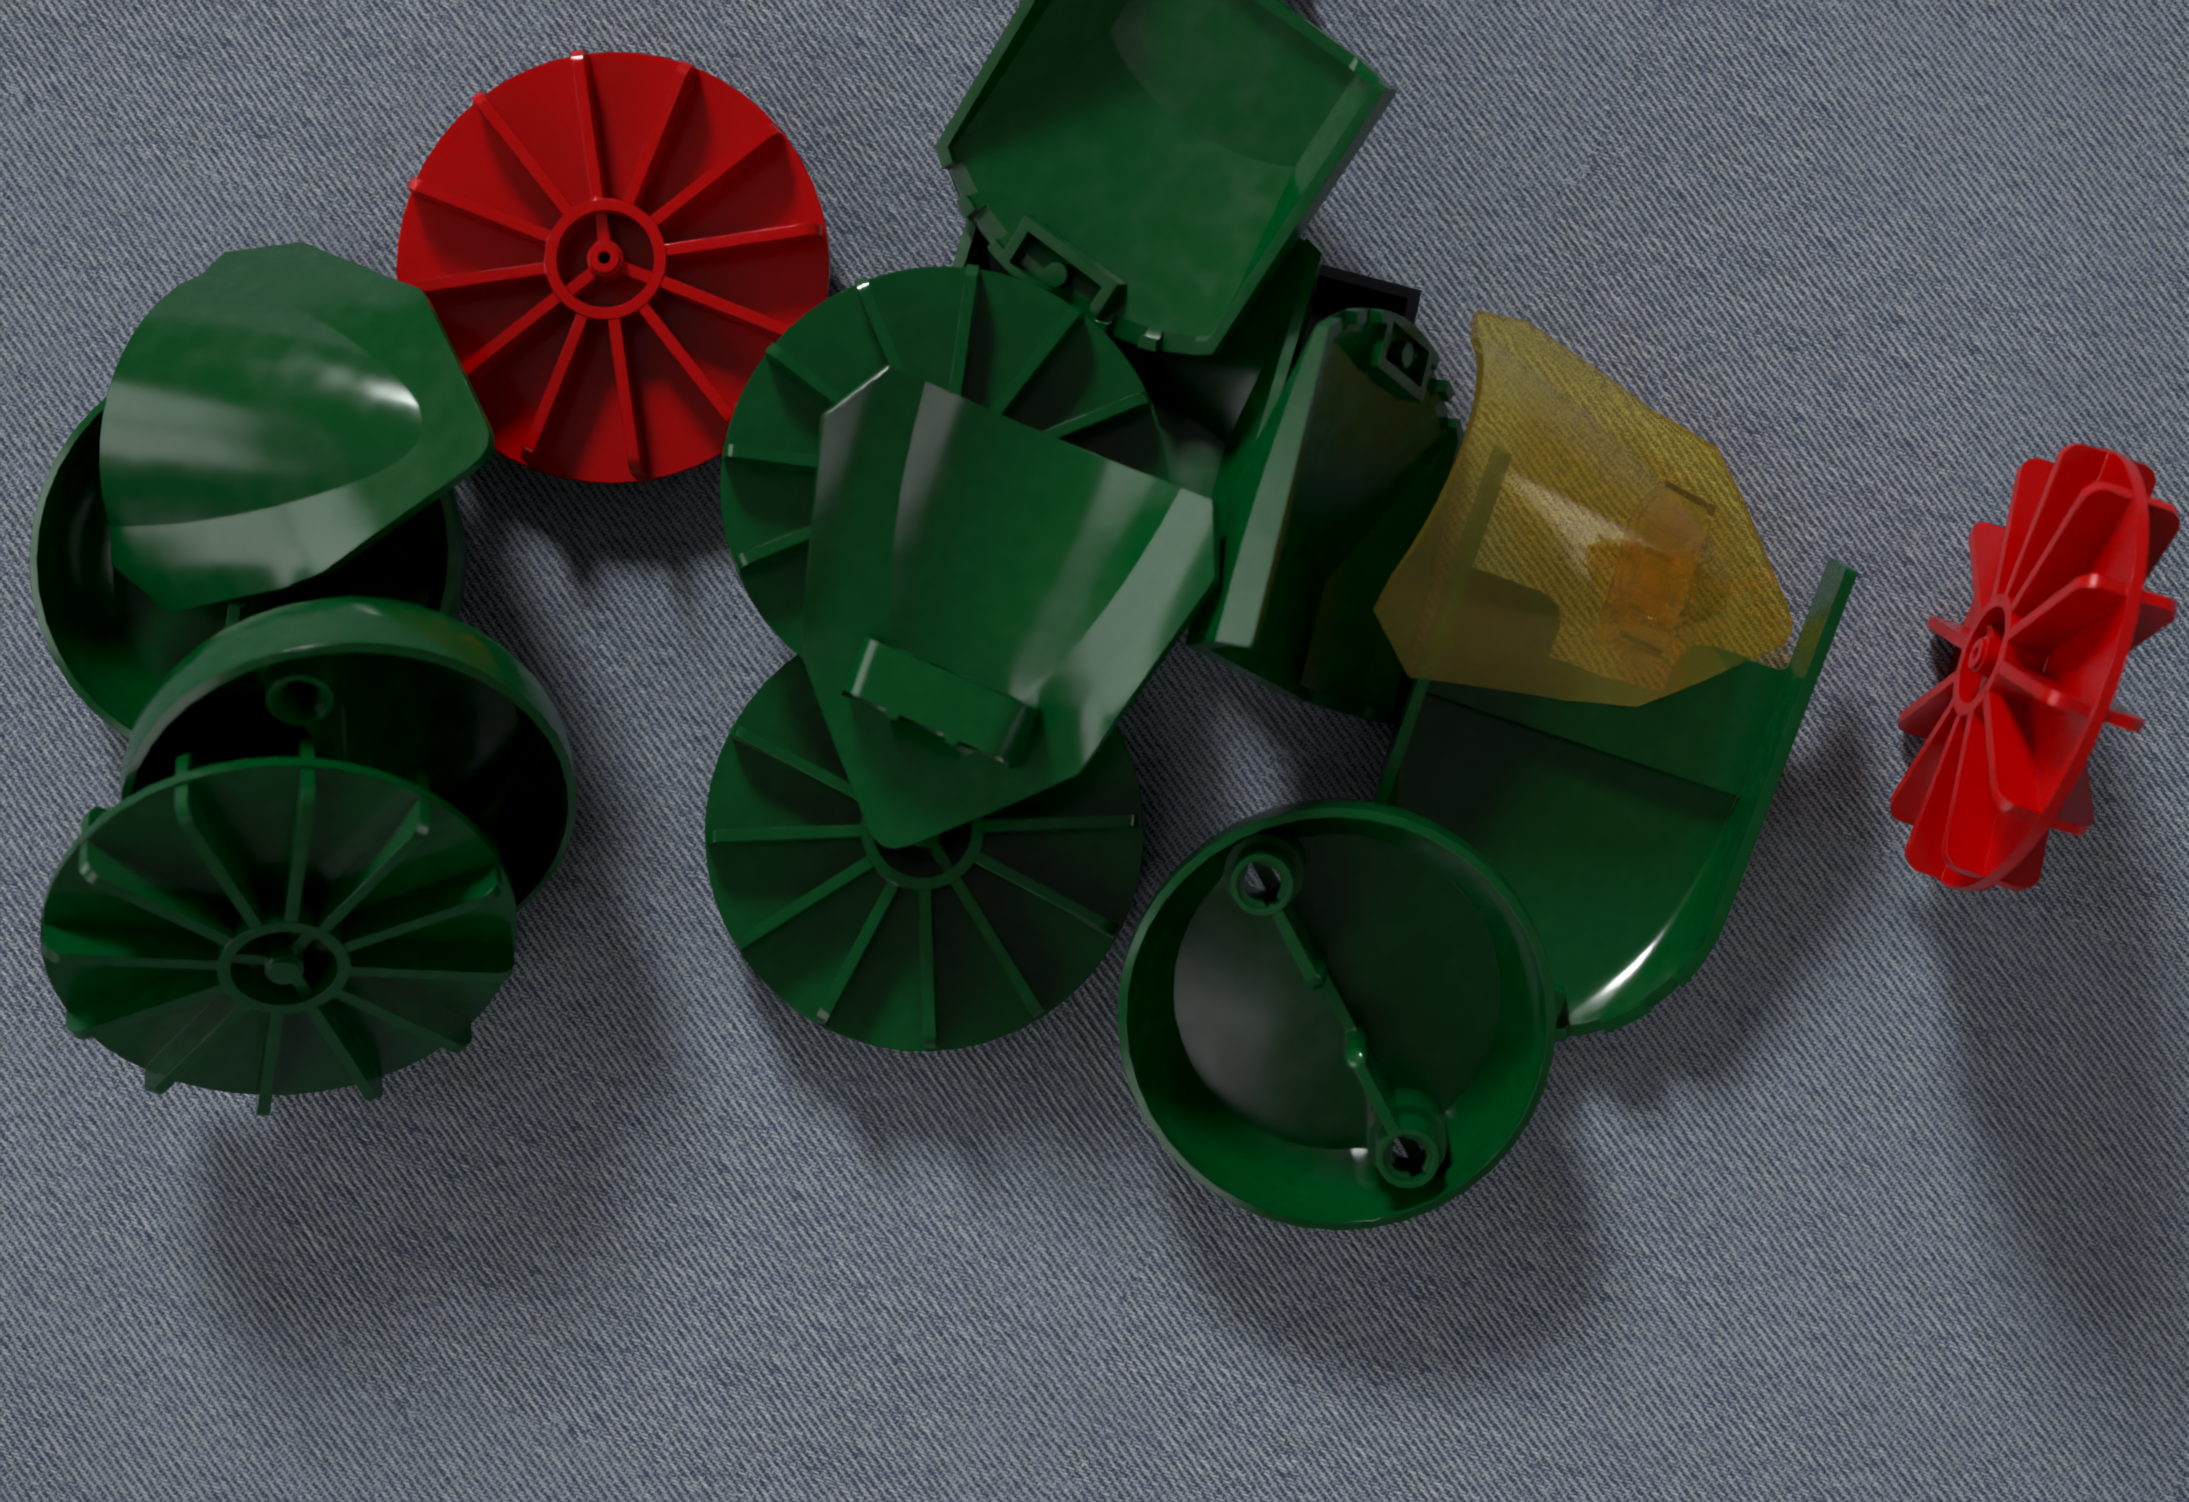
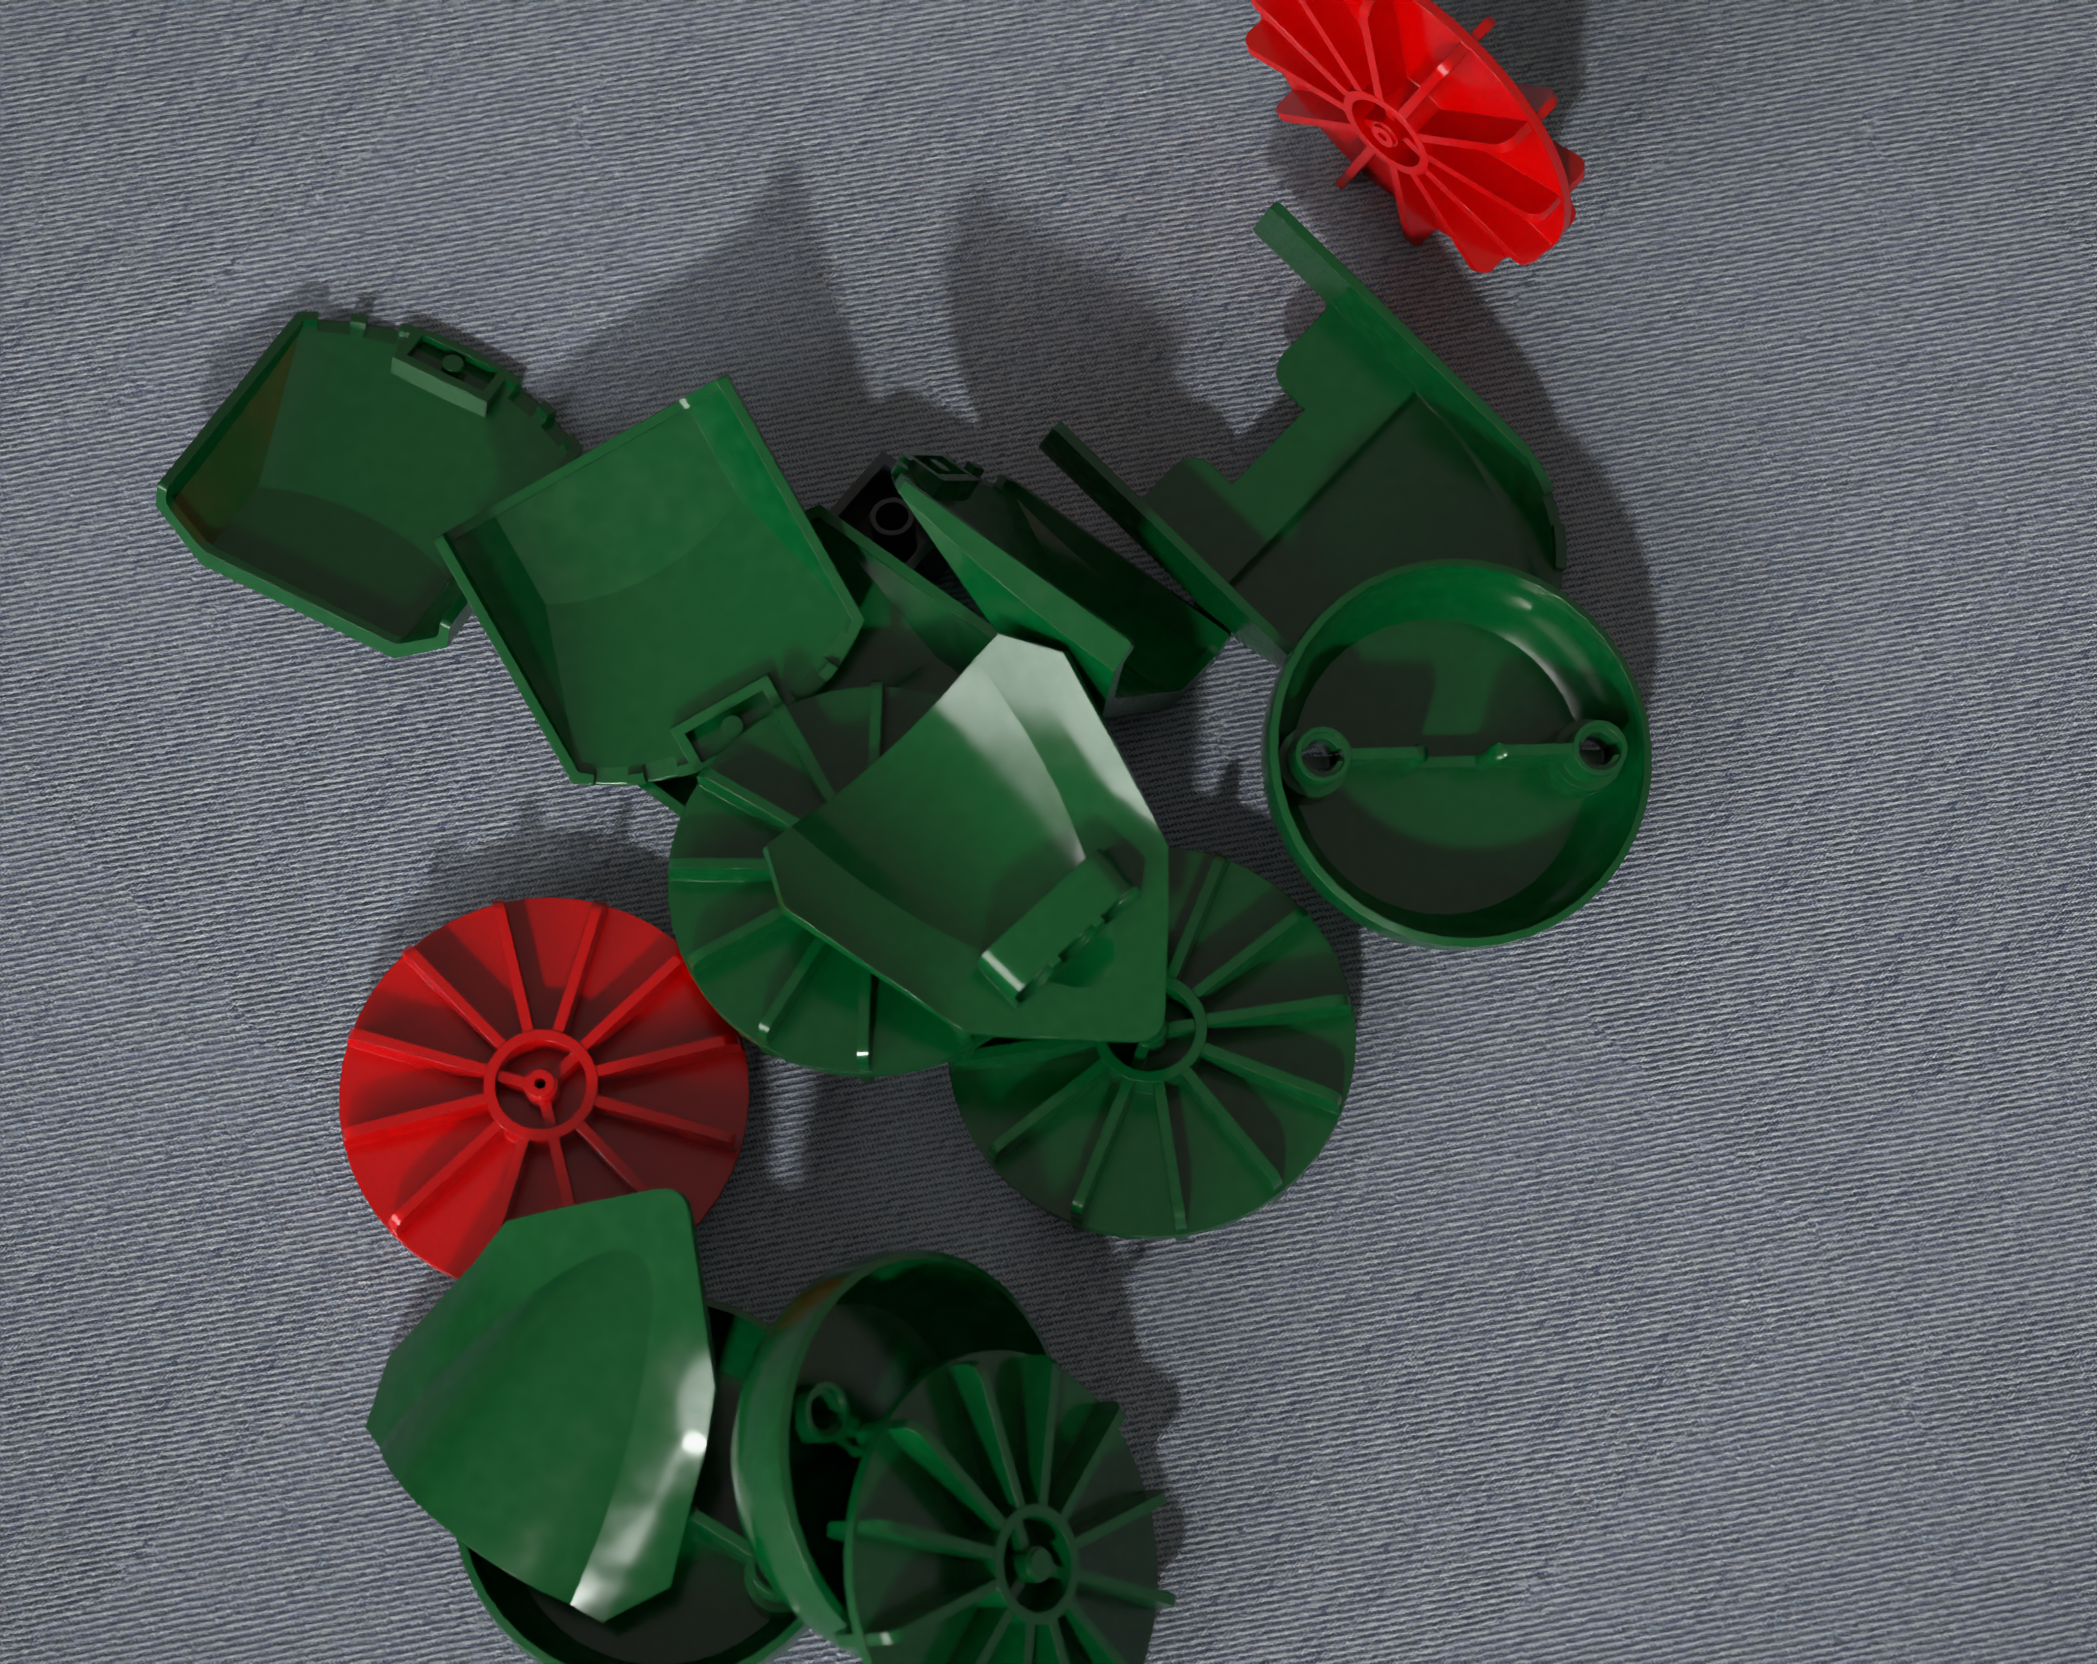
camera: 60 degrees left, 15 degrees down
(1579, 543) = (1157, 410): clear yellow windscreen -> none

